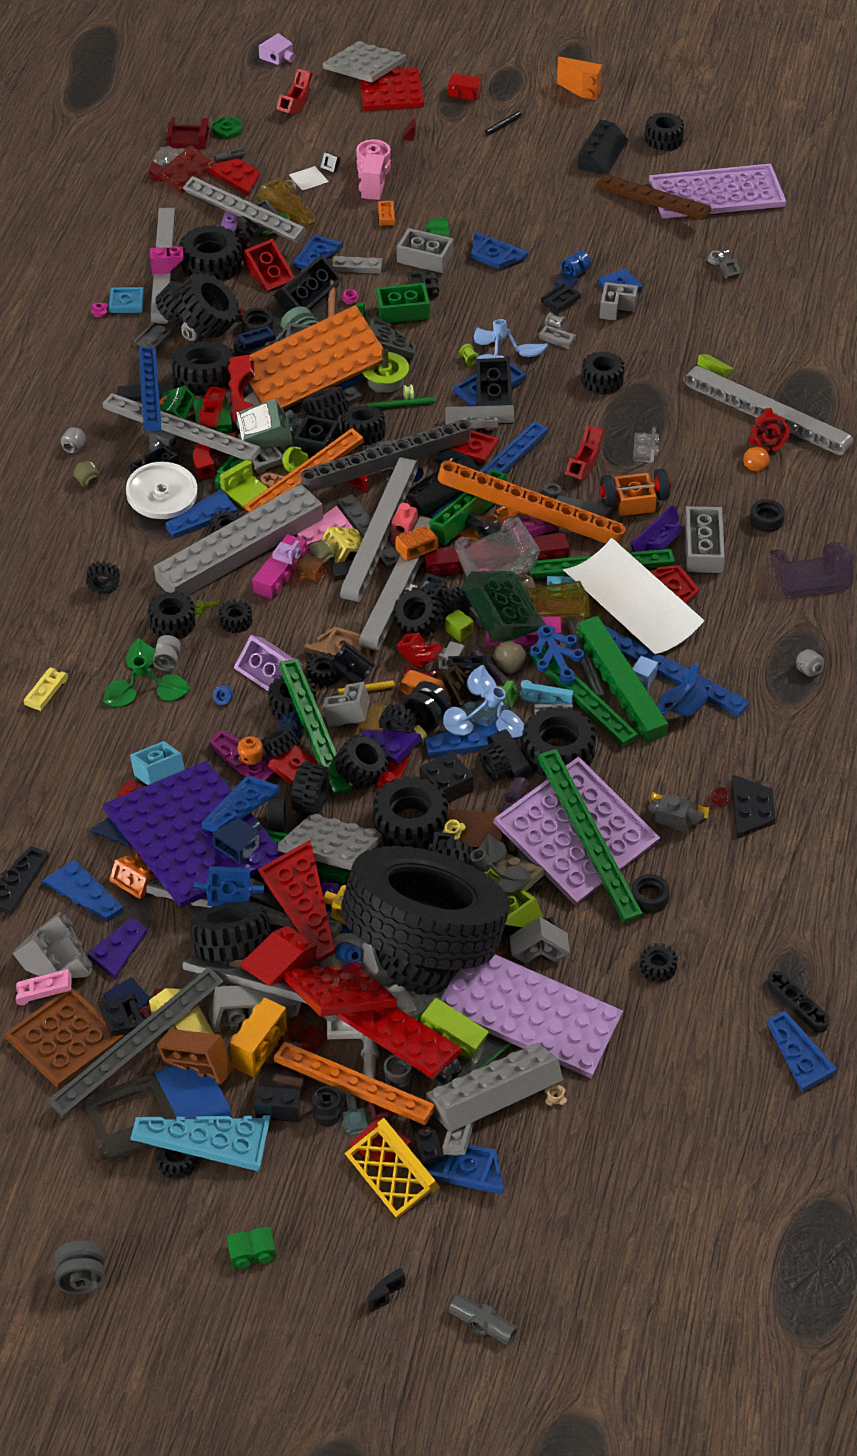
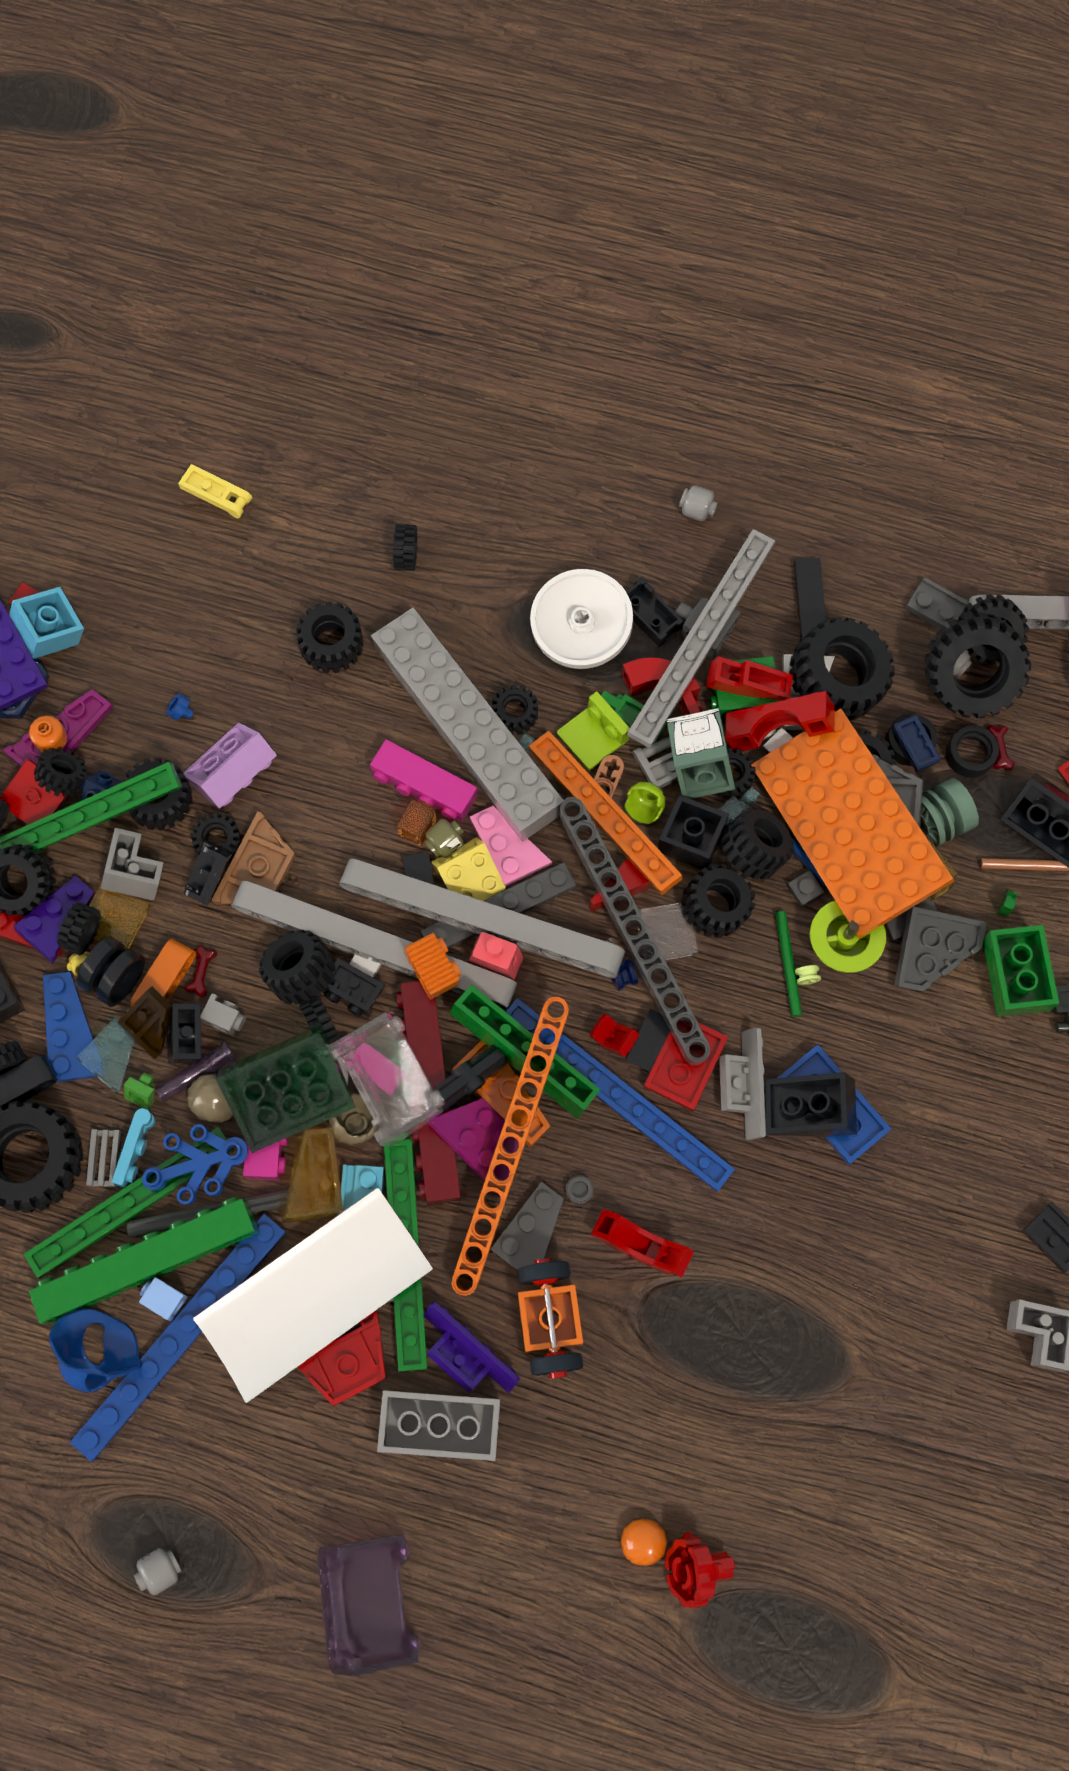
camera: 90 degrees right, 25 degrees up
(86, 474) = (624, 522): olive head -> none
(99, 309) = (998, 535): dark pink plate -> none
(126, 300) = (1020, 564): dark azure plate -> none
(139, 659) = (203, 582): green plant -> none
(149, 389) = (784, 590): blue plate -> none
(166, 653) = (259, 633): light grey wheel -> none
(177, 401) = (762, 631): green torso -> none
(199, 514) = (555, 690): blue wing -> none
(200, 605) = (356, 677): clear neon green hand -> none
(237, 623) = (326, 708): black tyre -> none
(287, 553) = (430, 784): lavender bracket -> none
(350, 296) = (1046, 886): dark pink plate -> none
(373, 687) = (181, 900): yellow bar -> none
(416, 651) = (233, 967): red brick -> none
(431, 493) = (592, 1028): black slope -> none
(459, 625) = (284, 1025): lime brick -> none
(469, 354) = (902, 1074): lime bush -> none
(482, 684) = (80, 1090): light blue plant -> none
(500, 331) = (950, 1109): light blue plant -> none
(557, 336) = (948, 1246): light grey tile -> none
(559, 321) = (991, 1223): light grey bush -> none
(602, 372) = (877, 1292): black tyre -> none
(645, 446) = (680, 1350): clear bracket -> none
(714, 365) = (890, 1498): lime slope -> none
(755, 403) = (763, 1582): light grey beam -> none
(764, 524) = (519, 1559): black tyre -> none

